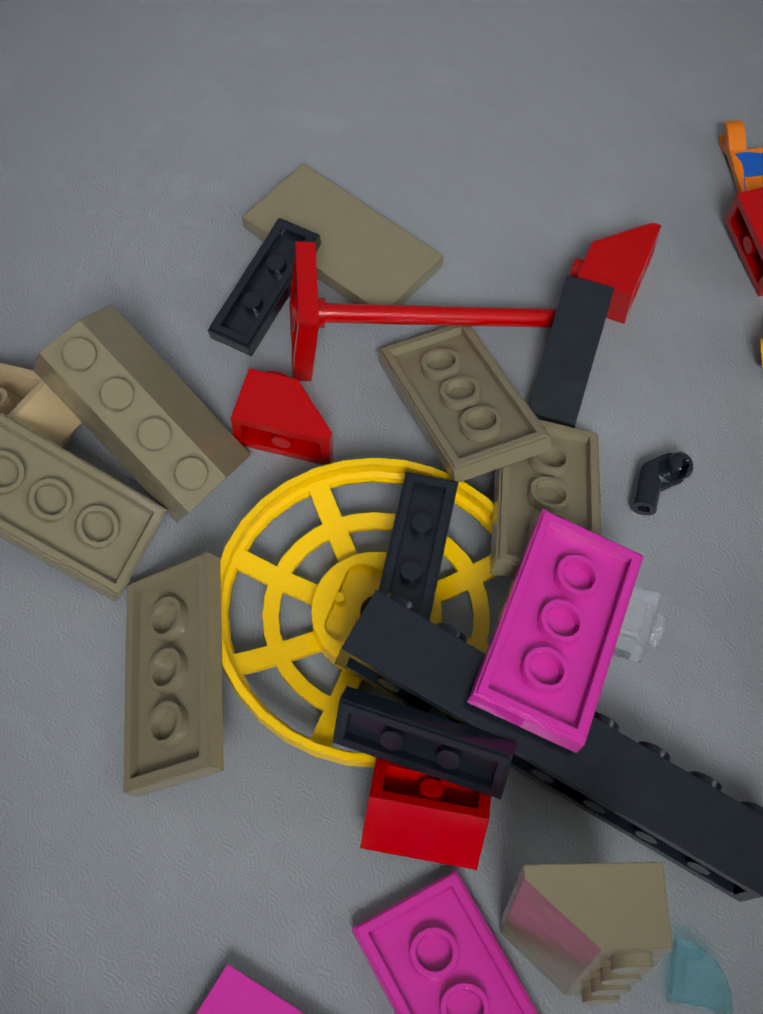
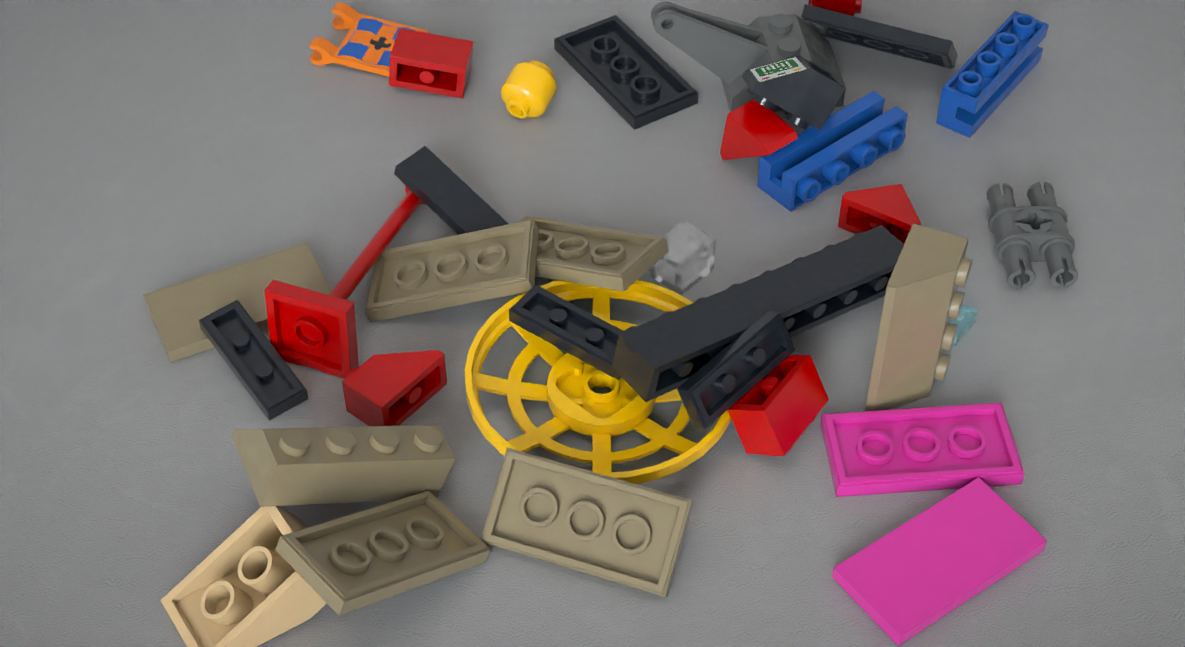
camera: 65 degrees left, 15 degrees down
(557, 631) = (695, 262): dark pink tile -> none
(619, 263) = (390, 145): red slope -> none
(658, 476) = (579, 201): black arm -> none

